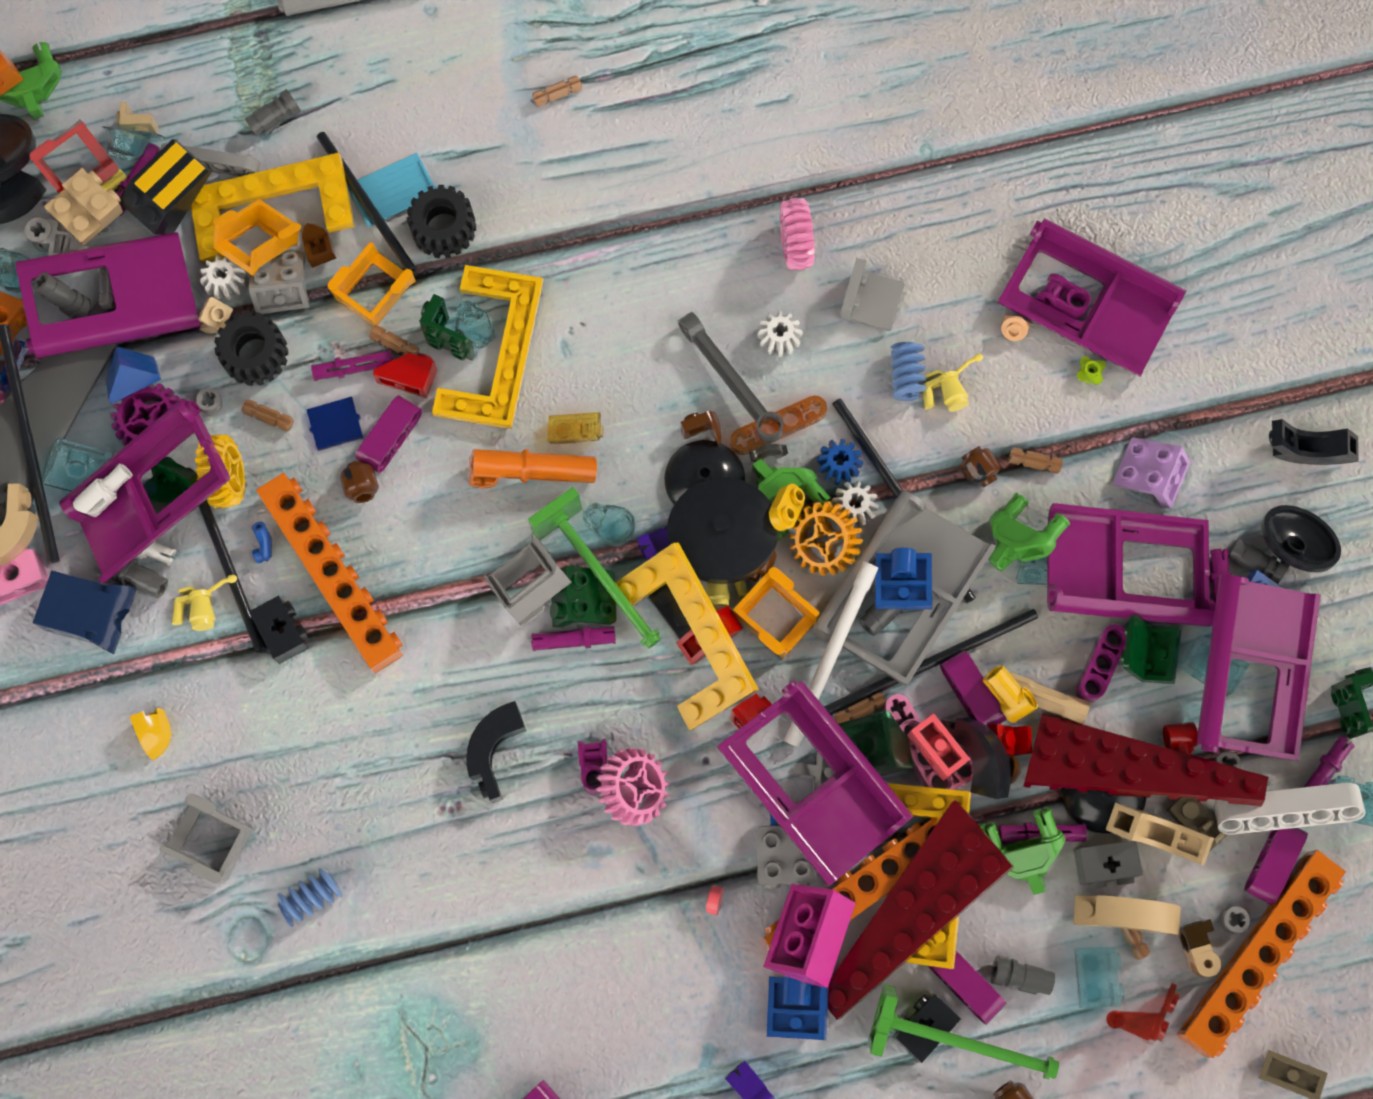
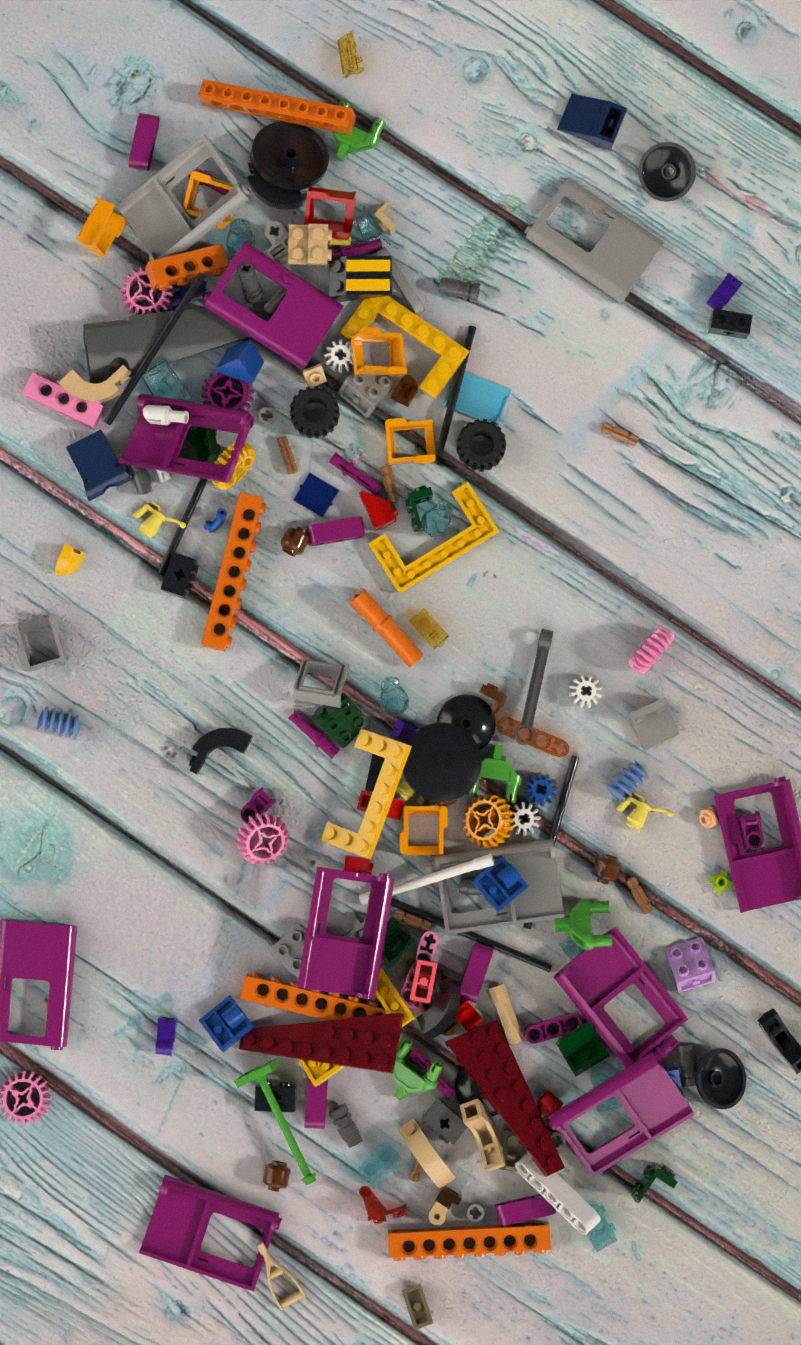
camera: 45 degrees right, 10 degrees up
(556, 516) = (370, 667): bright green tile -> none
(714, 899) = (243, 932): coral tile -> none
(768, 449) = (511, 746): clear smoke tile -> none
(786, 507) = (484, 785): yellow plate -> none
(809, 934) = (266, 998): dark pink slope -> none
(1013, 699) = (488, 997): yellow piece -> none
(1330, 763) = (604, 1195): magenta pin -> none

